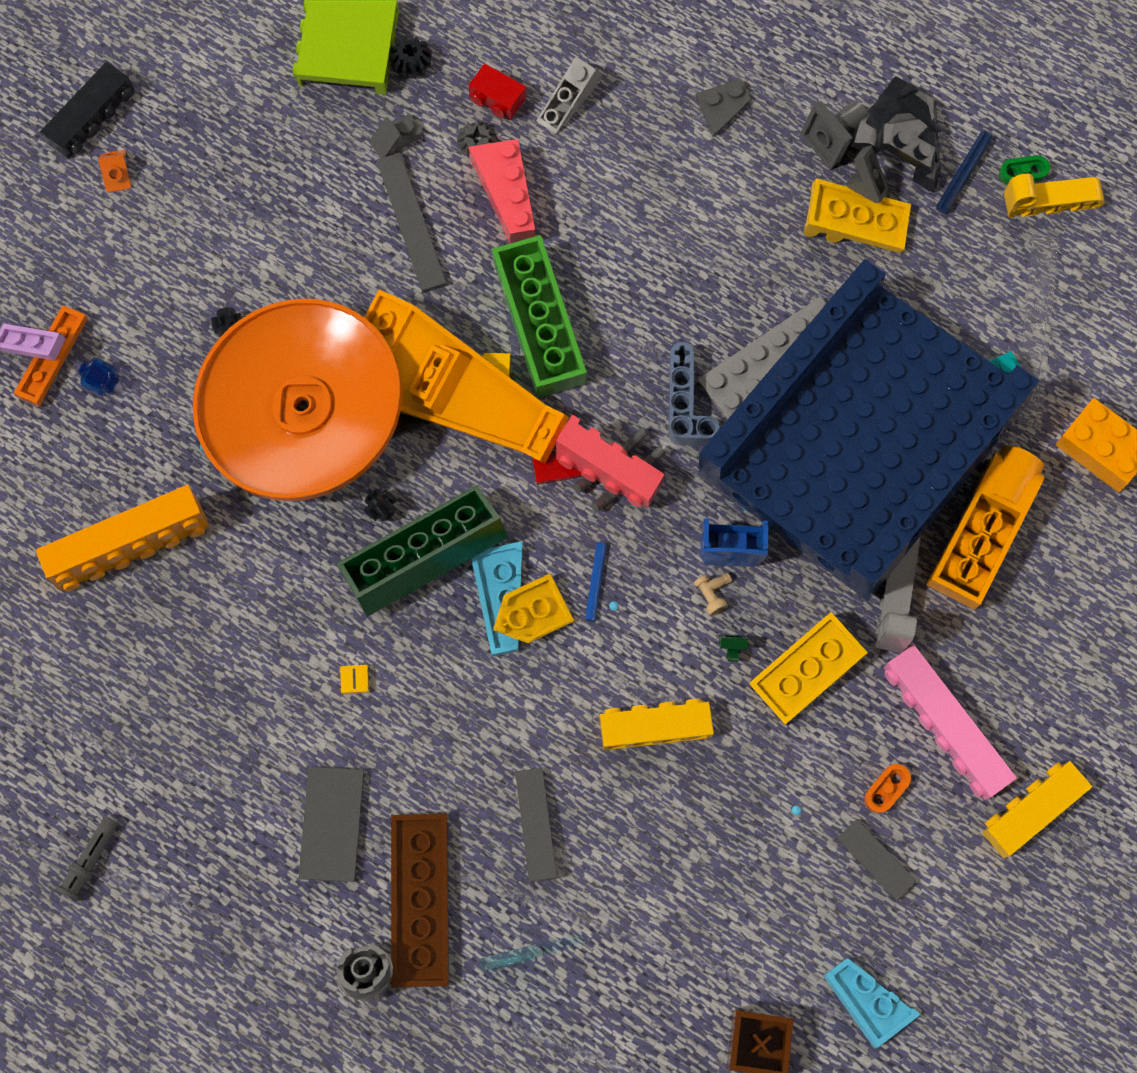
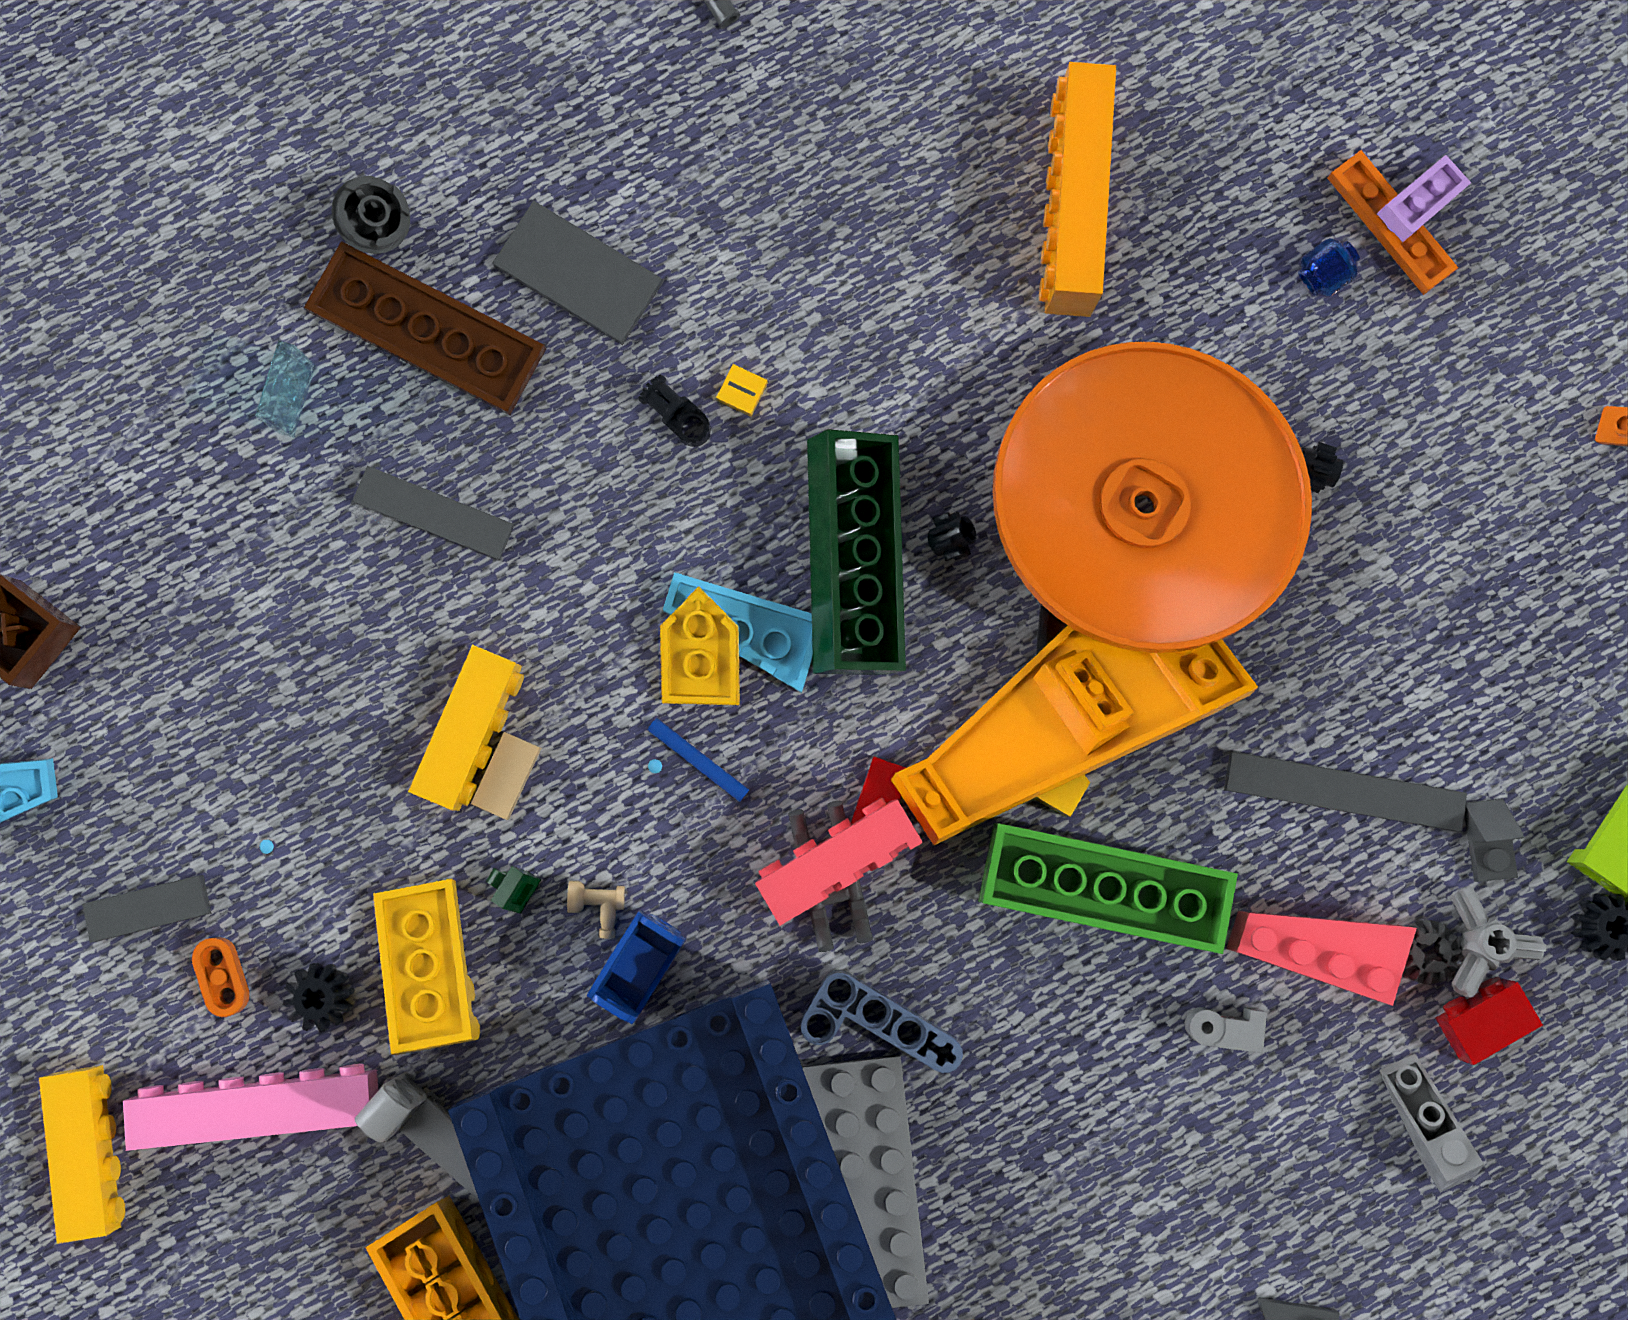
camera: 120 degrees right, 10 degrees up
(389, 709) = (676, 411): none -> black connector
(455, 111) = (1487, 943): none -> light grey bush
(581, 217) = (1227, 1031): none -> light grey leg
(670, 688) = (506, 776): none -> tan tile
(870, 730) = (323, 1013): none -> black gear

